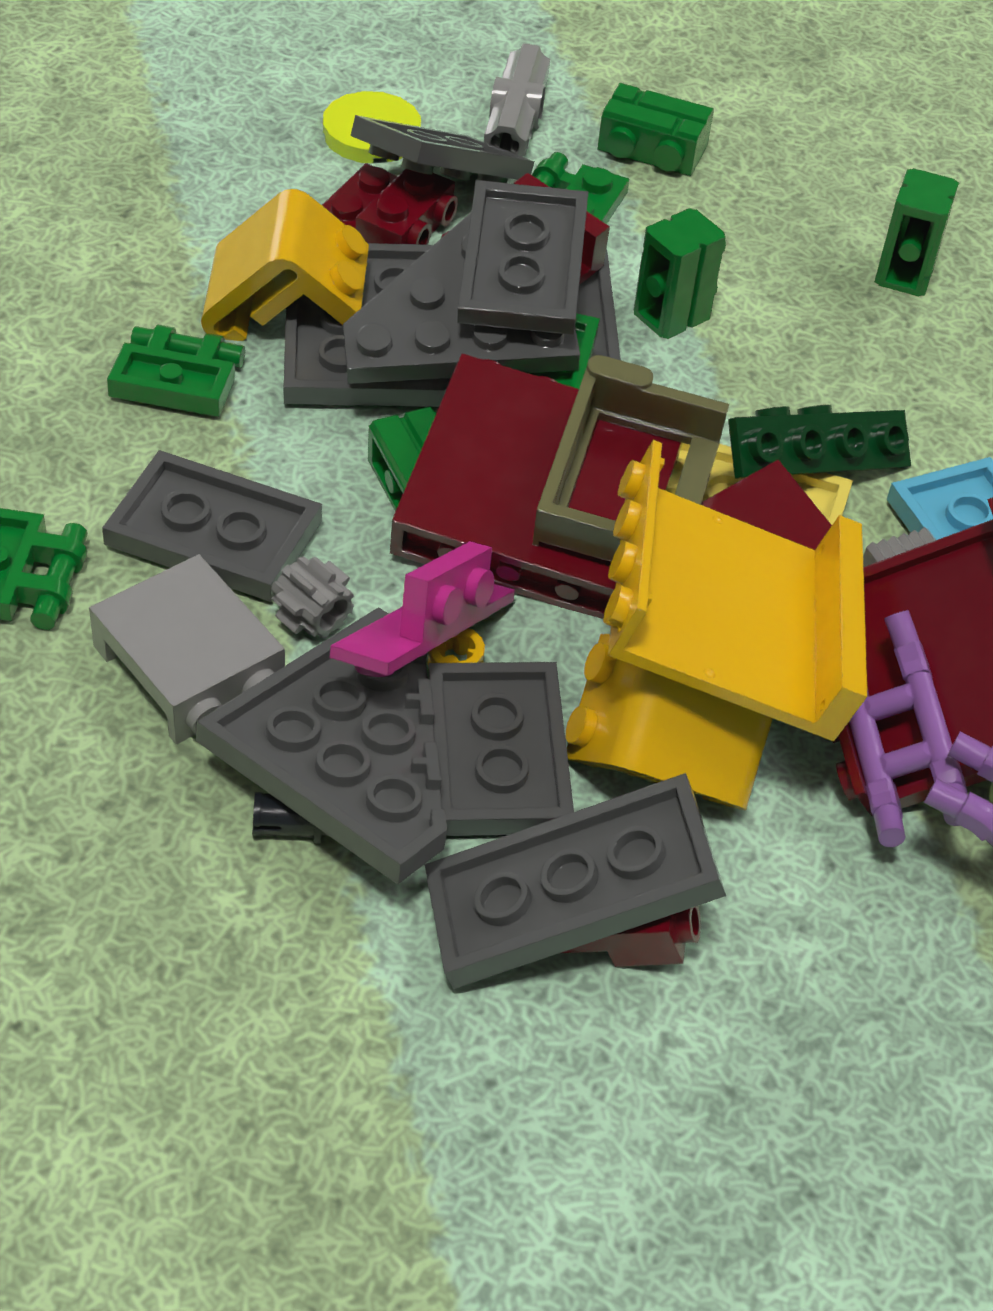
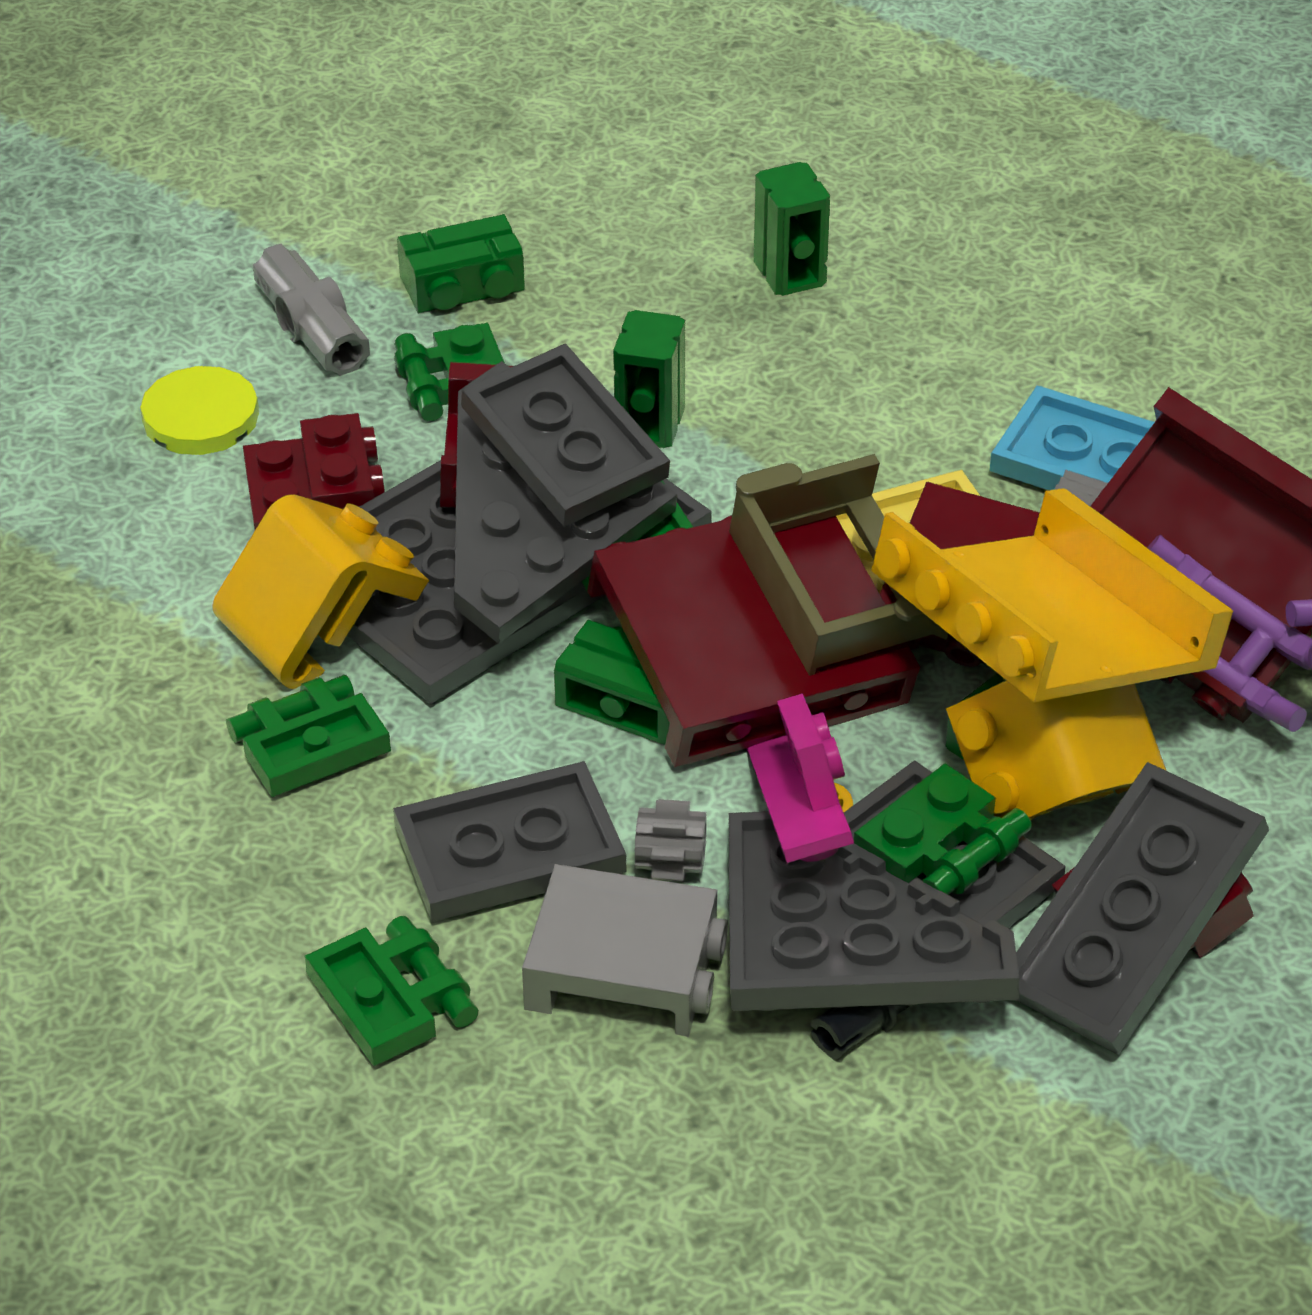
camera: 35 degrees left, 5 degrees down
(430, 148) = (323, 390): dark grey plate -> none
(500, 712) = (930, 820): none -> green plate
(819, 440) = (915, 449): dark green bracket -> none

